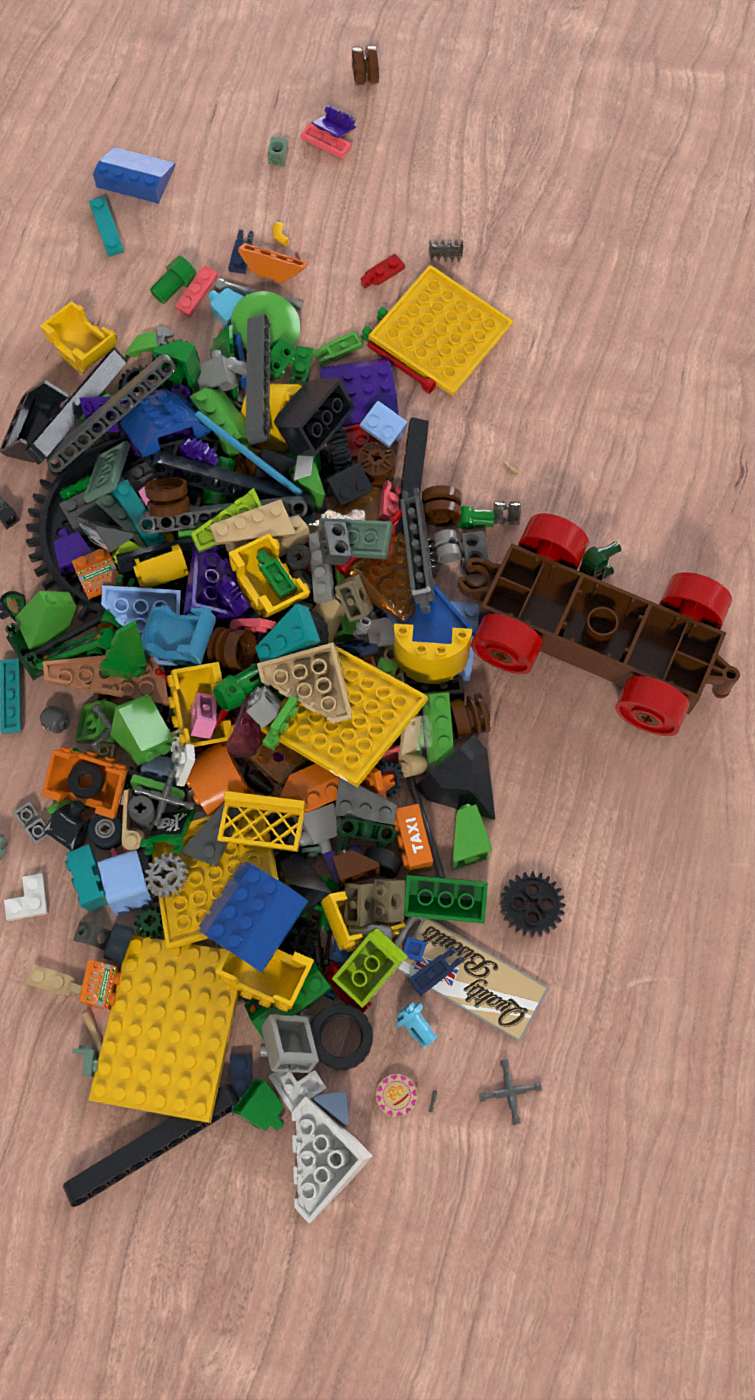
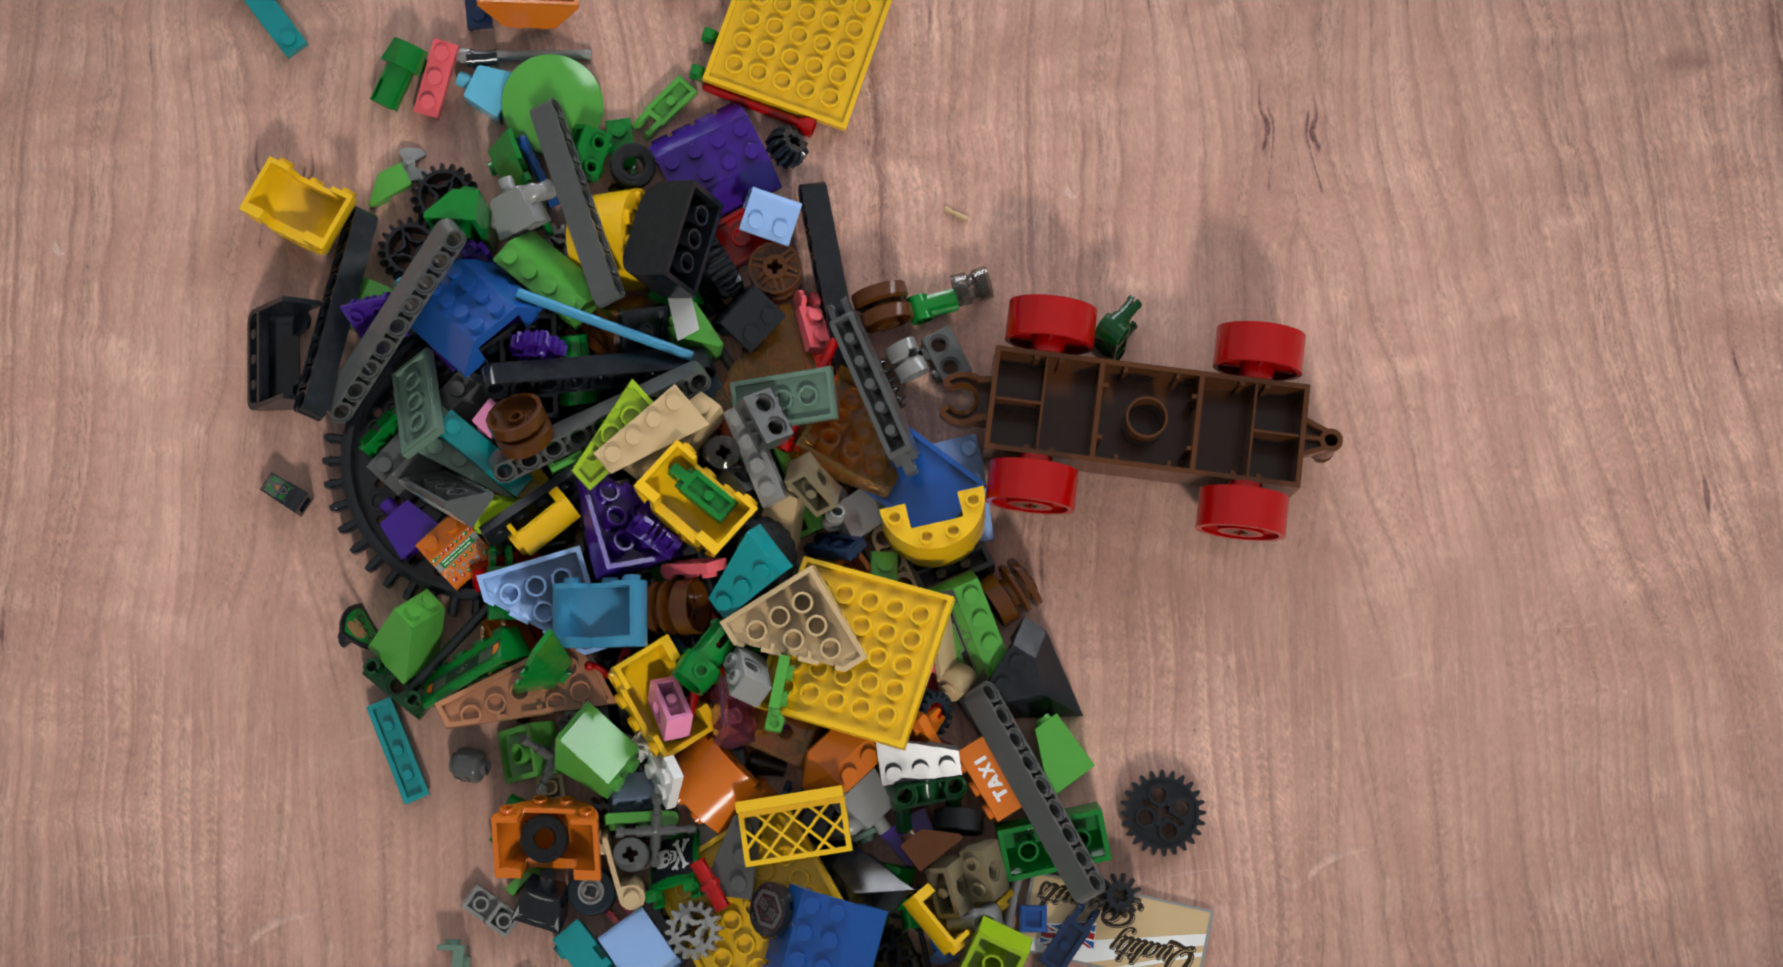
camera: 20 degrees left, 10 degrees up
(188, 845) = (709, 884): none -> red pin
(225, 874) = (771, 909): none -> black tile
(232, 285) = (484, 58): none -> black pin
(303, 364) = (636, 151): none -> black tyre
(410, 391) = (786, 146): none -> black gear
(443, 855) = (1034, 792): none -> dark grey beam
(482, 944) = (1119, 885): none -> black gear

